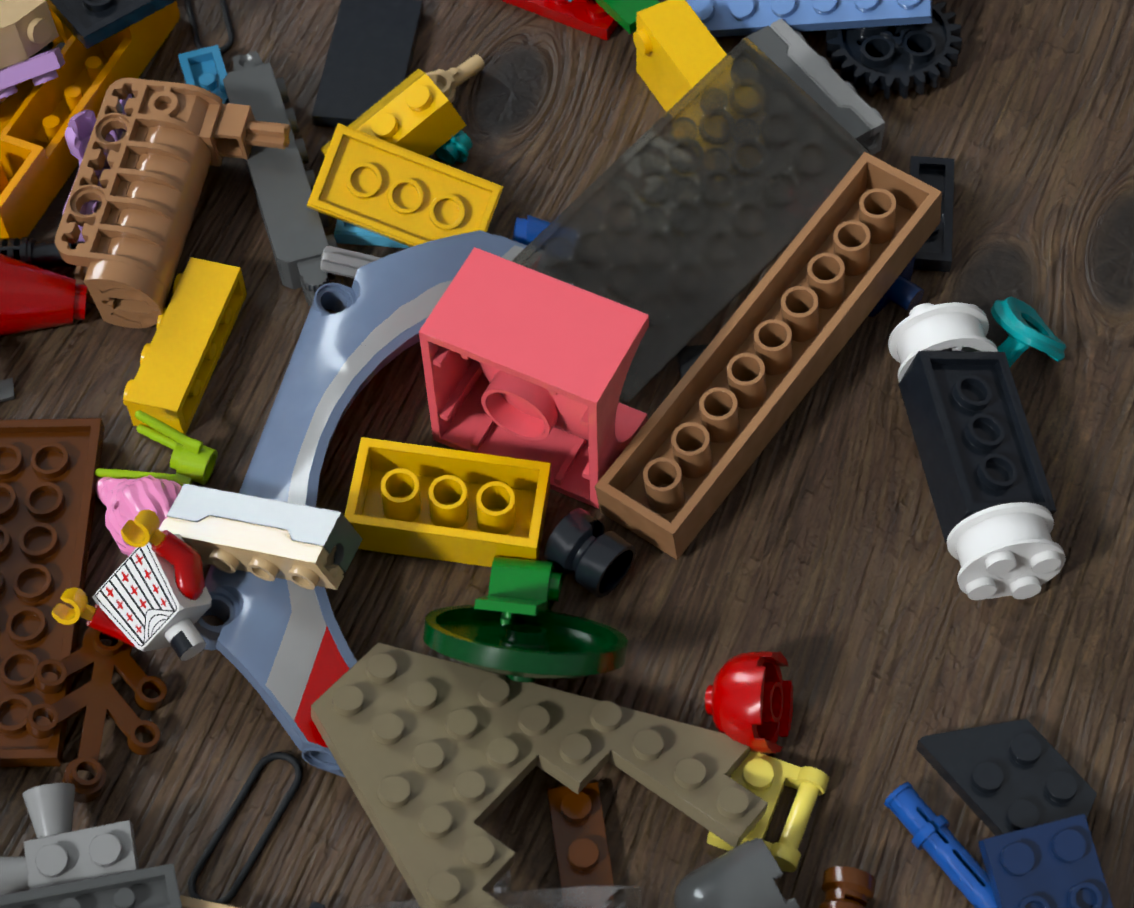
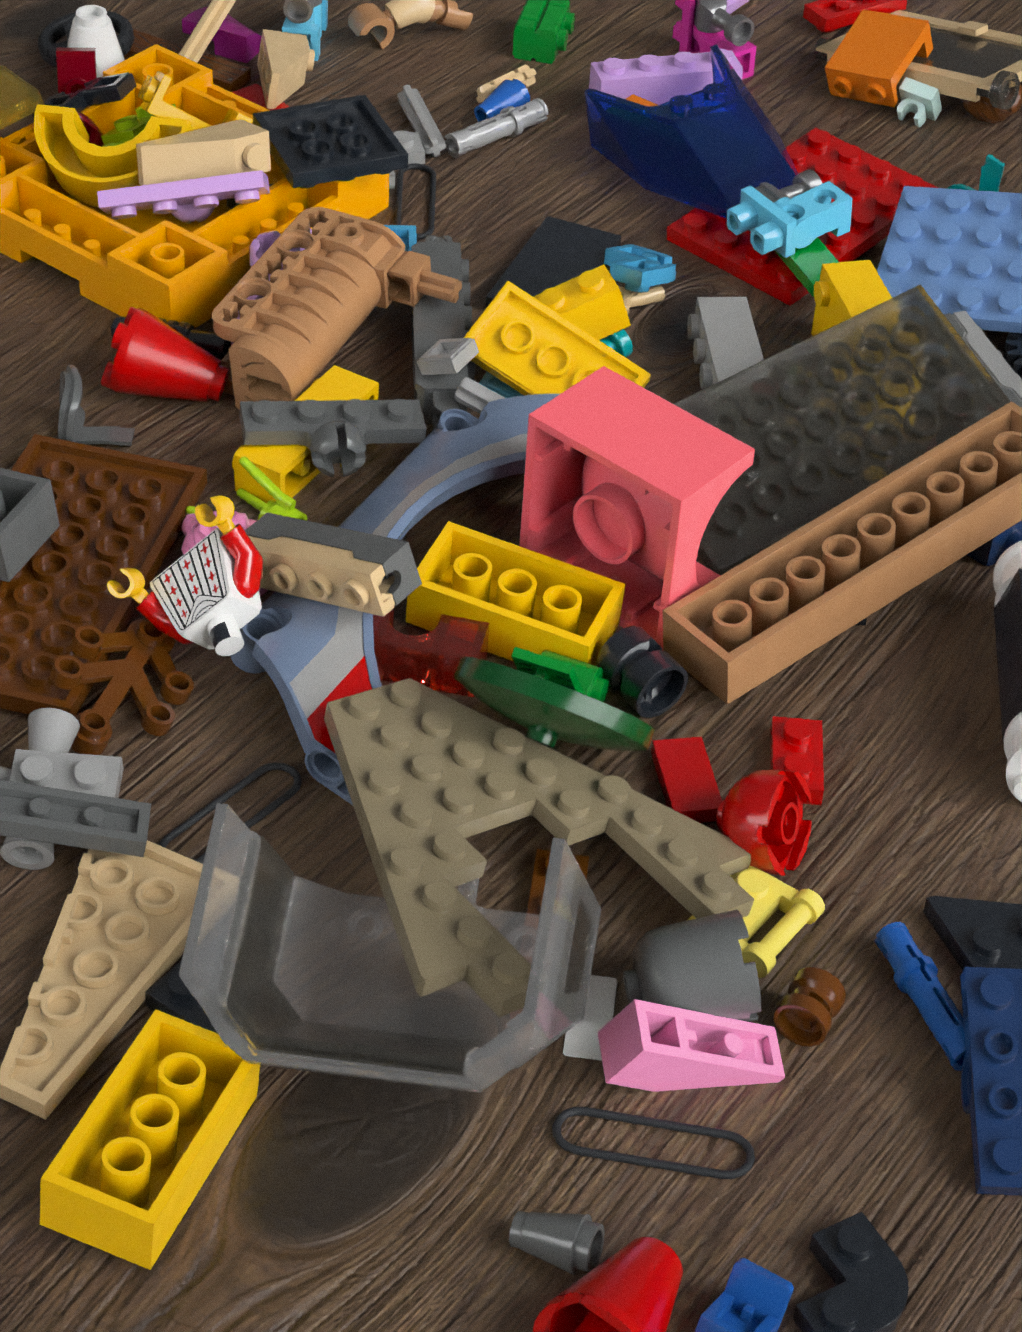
camera: 10 degrees right, 15 degrees down
(212, 341) = (332, 429): none -> dark grey plate
(301, 222) = (447, 356): none -> light grey tile
(399, 589) = (431, 656): none -> clear red arch
(455, 40) = (639, 267): none -> dark azure plate
(566, 126) = (723, 338): none -> light grey brick
(664, 663) = (687, 777): none -> red tile
(758, 606) = (798, 746): none -> red plate

